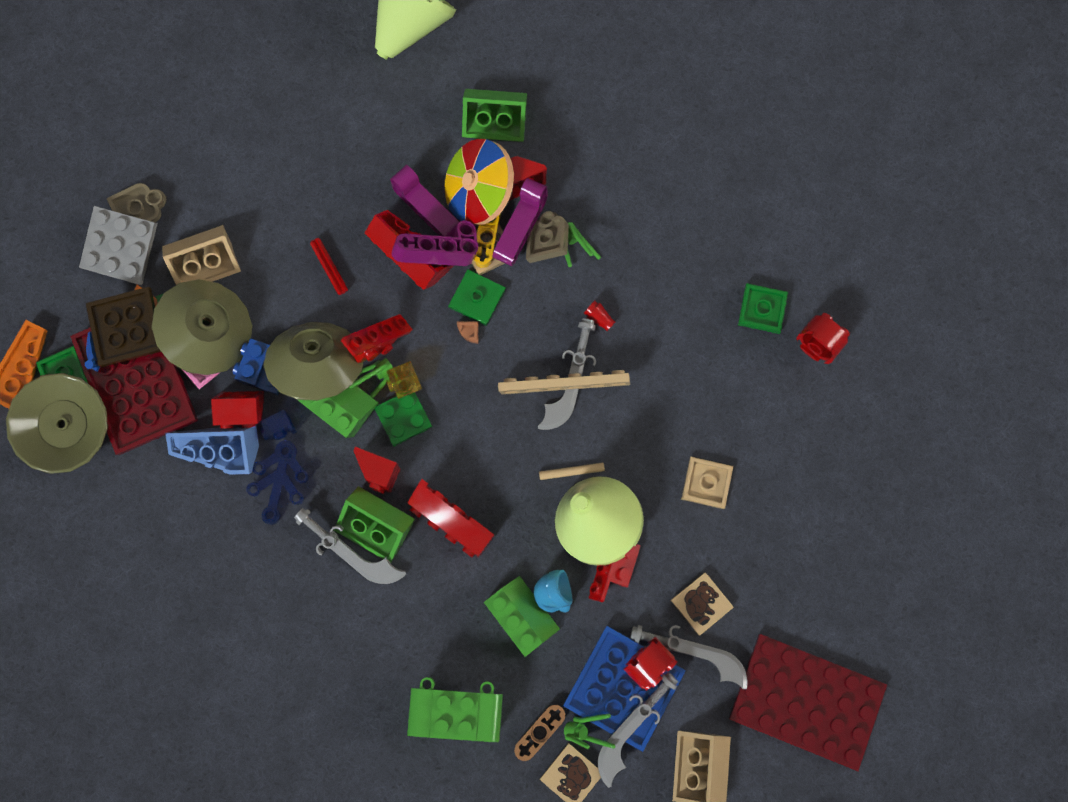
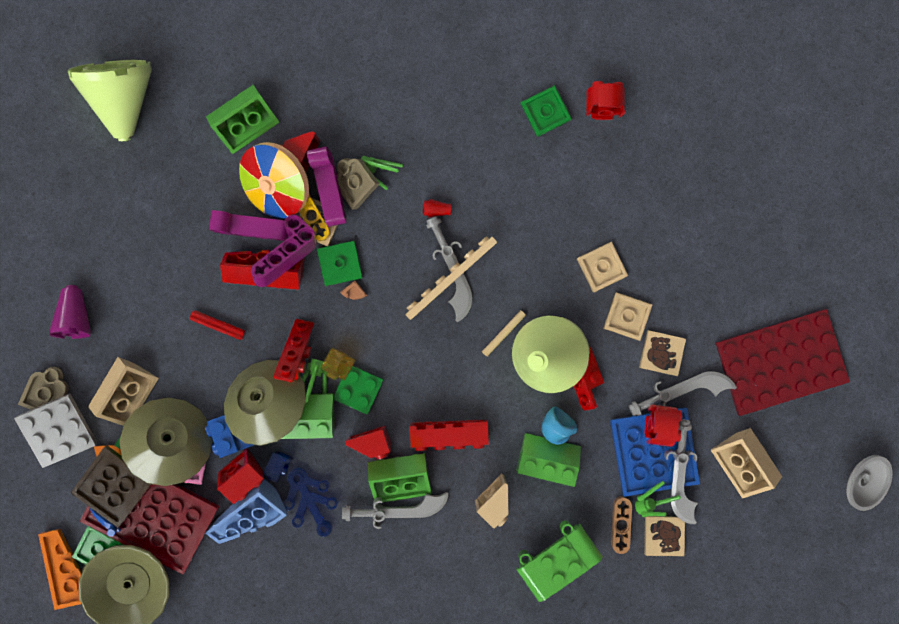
camera: 30 degrees left, 10 degrees up
(213, 161) = (70, 315): none -> magenta cone
(441, 610) = (493, 502): none -> tan slope
(696, 545) = (627, 316): none -> tan tile

